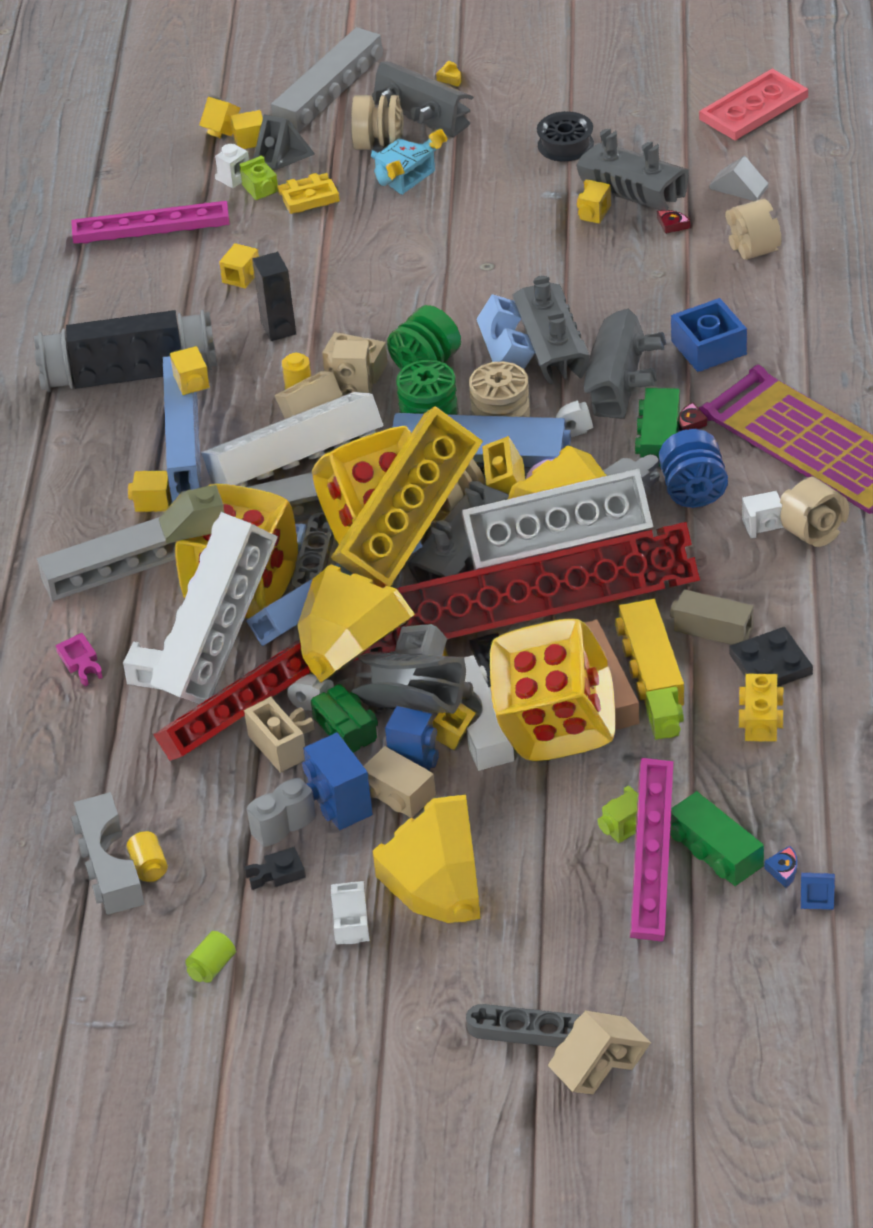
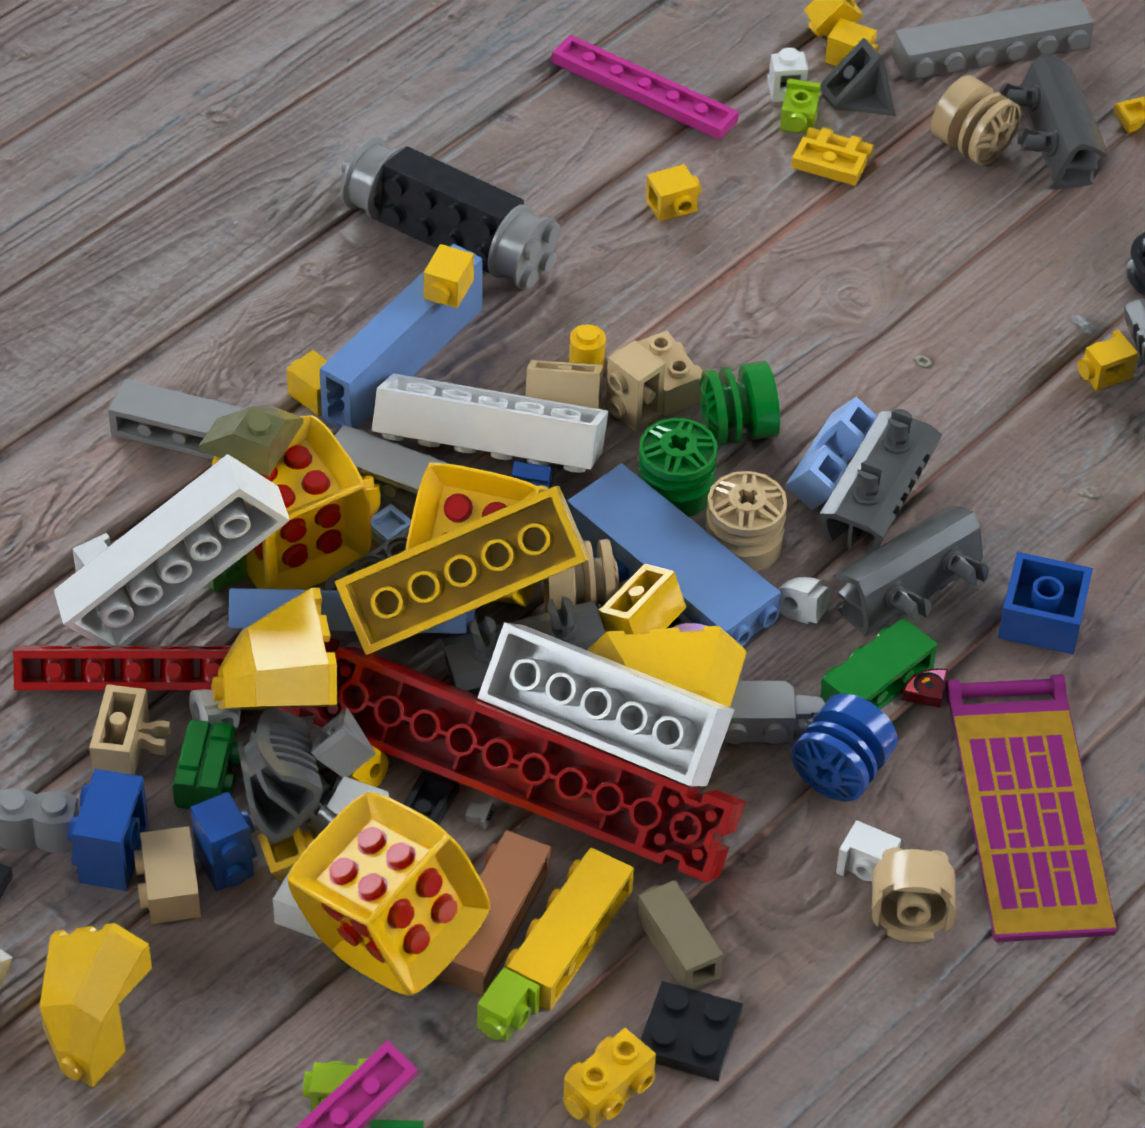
camera: 35 degrees right, 5 degrees up
(79, 656) = (57, 509): dark pink plate -> none
(274, 296) = (643, 249): black brick -> none
(406, 163) = (963, 185): medium azure torso -> none

